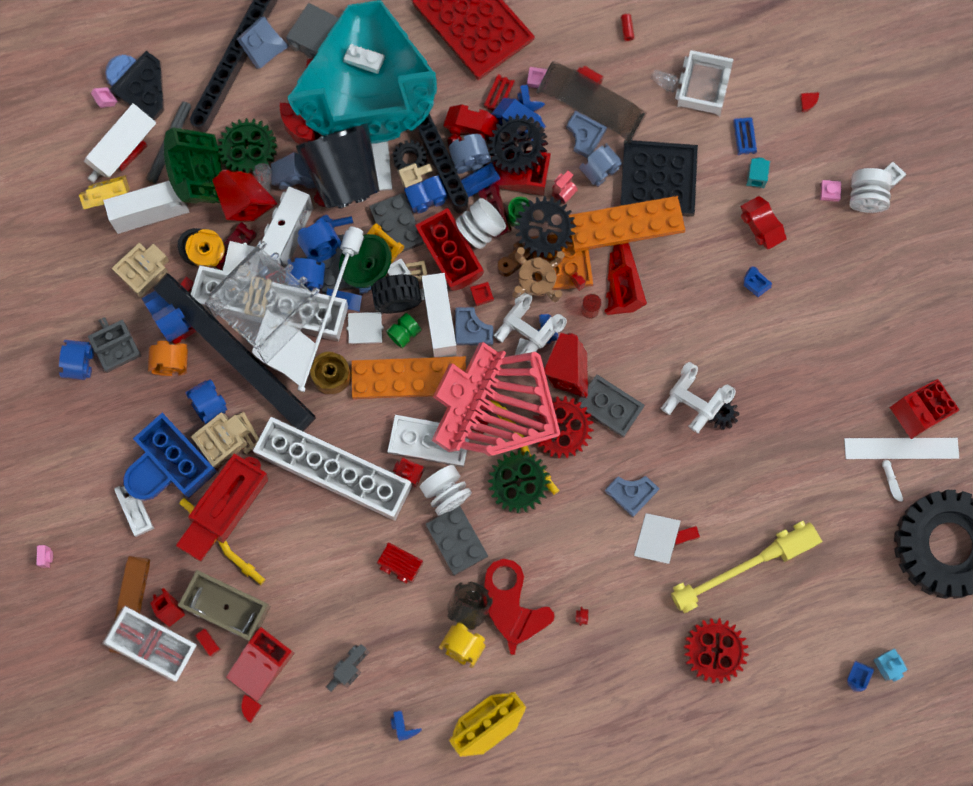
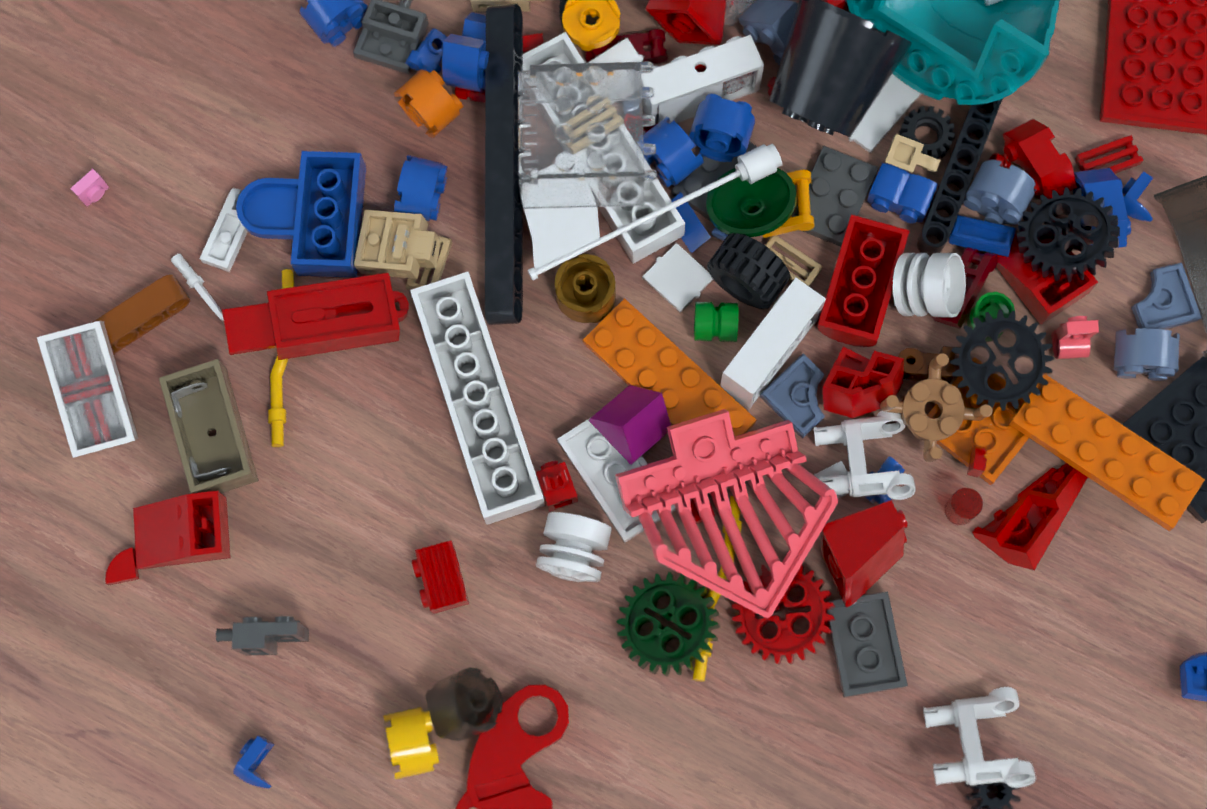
camera: 50 degrees right, 0 degrees up
(142, 549) = (195, 281): none -> white piece
(143, 339) = (426, 56): none -> blue plate
(167, 608) = (146, 368): red brick -> none
(208, 642) = (155, 451): red piece -> none
(338, 222) = (766, 129): blue bar -> none
(398, 268) = (781, 245): white plate -> none
(413, 410) = (633, 421): none -> magenta slope
(456, 540) = (530, 617): dark grey plate -> none
(499, 299) = (859, 393): none -> red brick
(535, 77) = (1171, 177): bright pink plate -> none
(632, 494) = (783, 773): sand blue tile -> none

